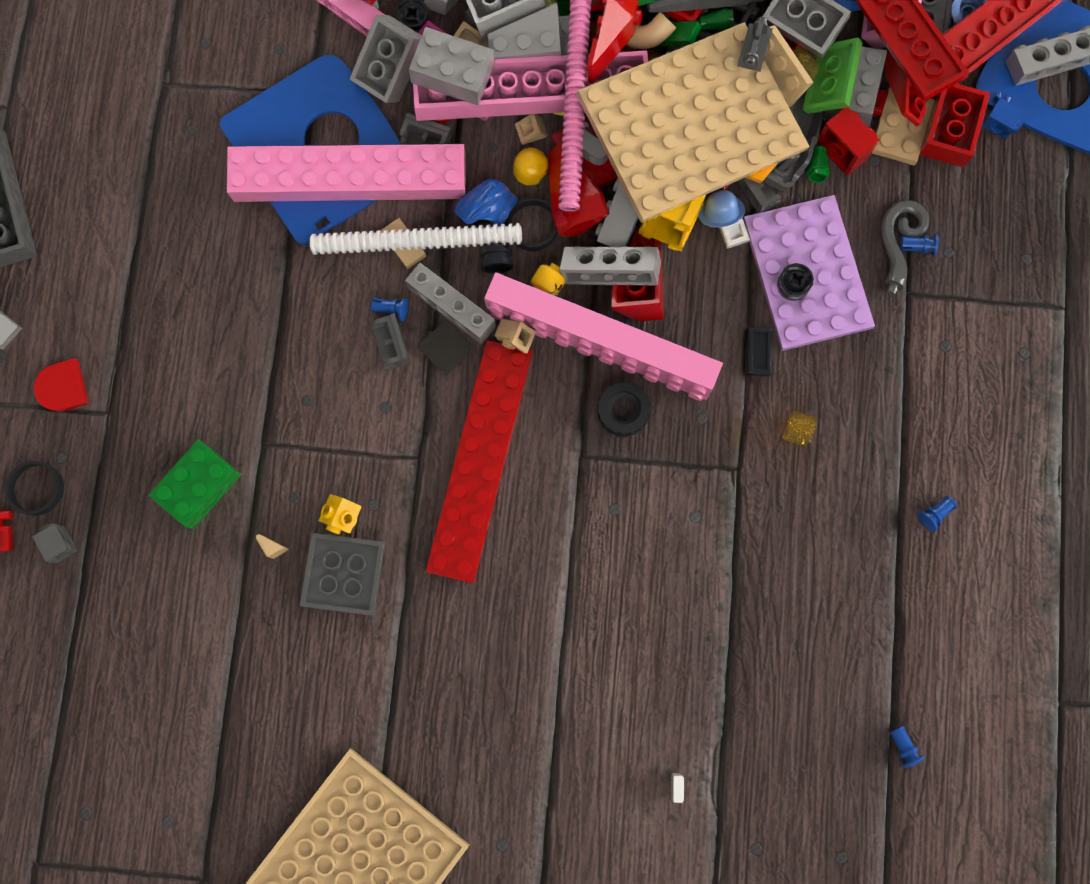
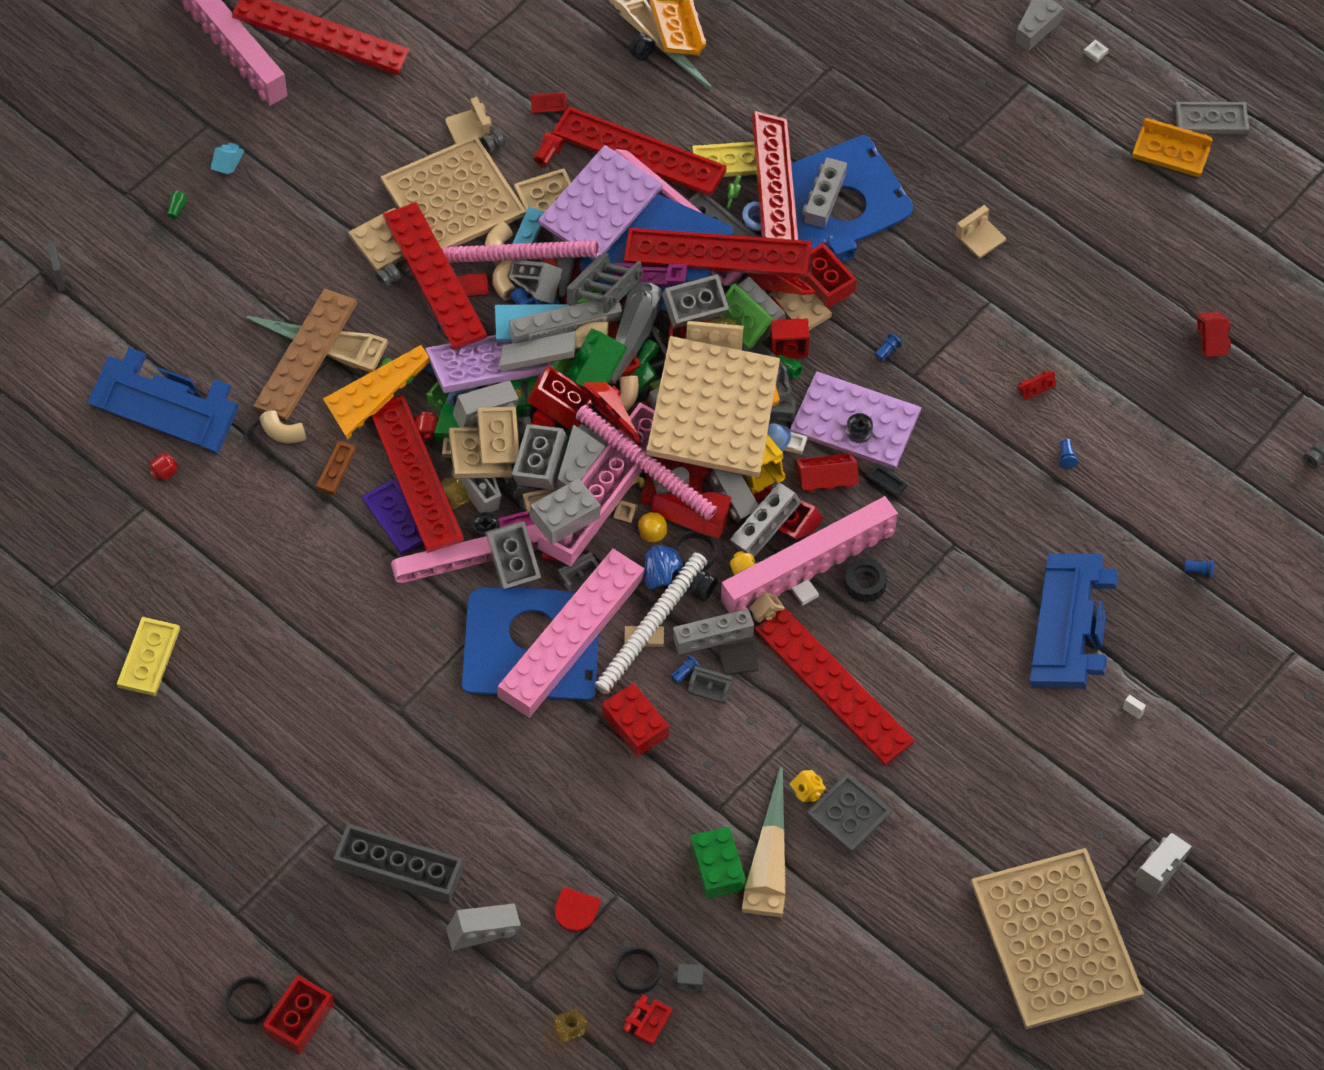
camera: 60 degrees left, 20 degrees down
(211, 544) = (766, 880): none -> tan plate
(270, 548) = (796, 844): tan slope -> none
(298, 298) = (635, 719): none -> red brick
(566, 360) = (805, 592): none -> white tile
(721, 285) = (827, 472): none -> red slope
(729, 651) = (1067, 619): none -> blue piece
(755, 45) = (694, 339): dark grey hinge -> none
(799, 428) = (956, 490): clear yellow brick -> none
(898, 266) = (894, 370): dark grey plant -> none
(1006, 428) = (1039, 385): none -> red hinge

